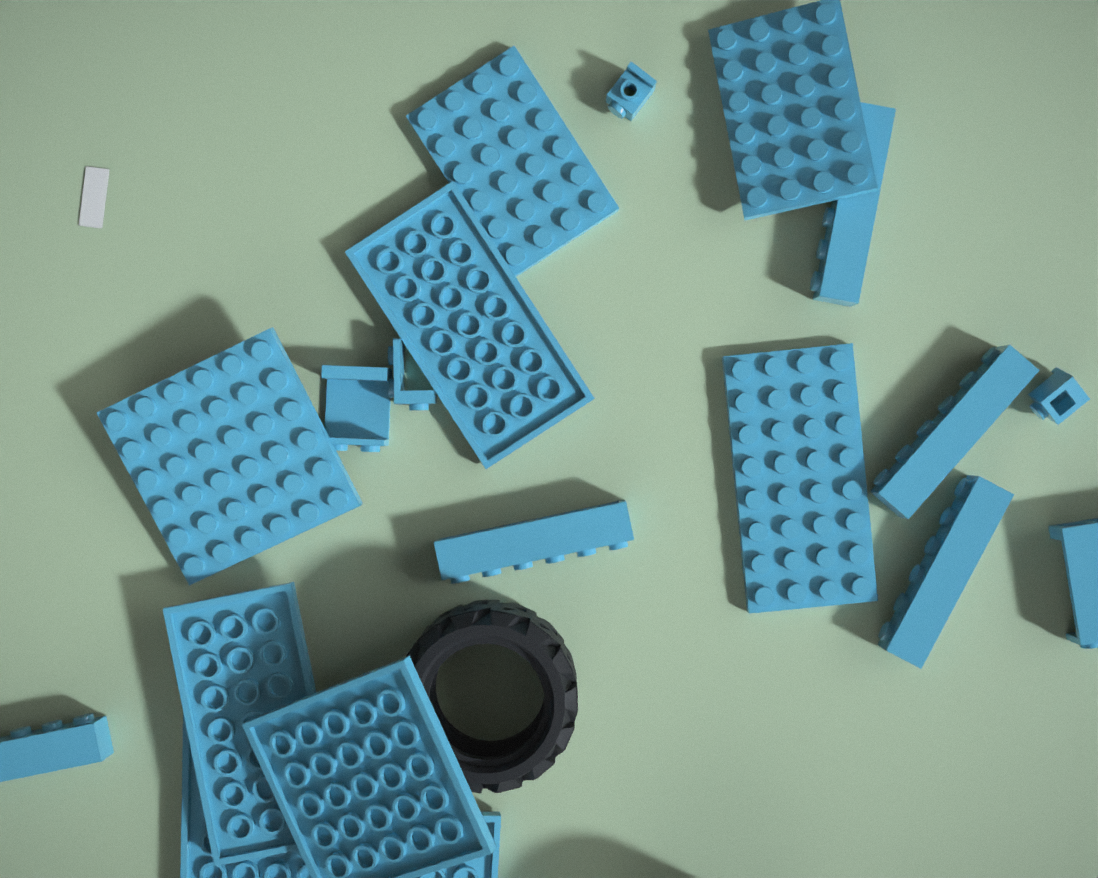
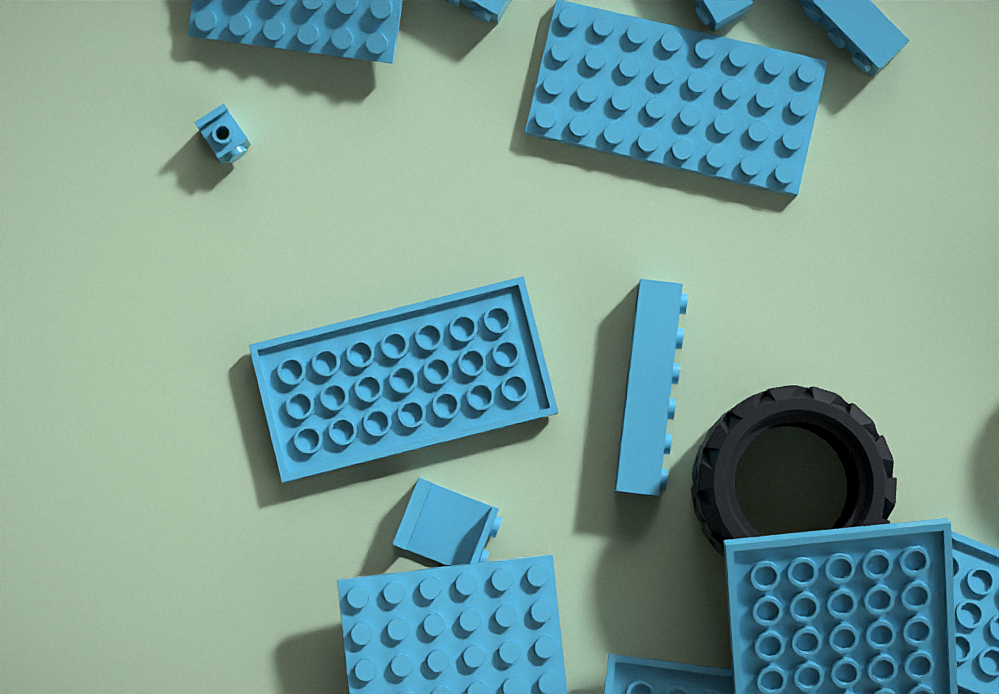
camera: 75 degrees left, 5 degrees down
(417, 399) = (461, 460): medium azure bracket -> none
(513, 161) = (248, 277): medium azure plate -> none

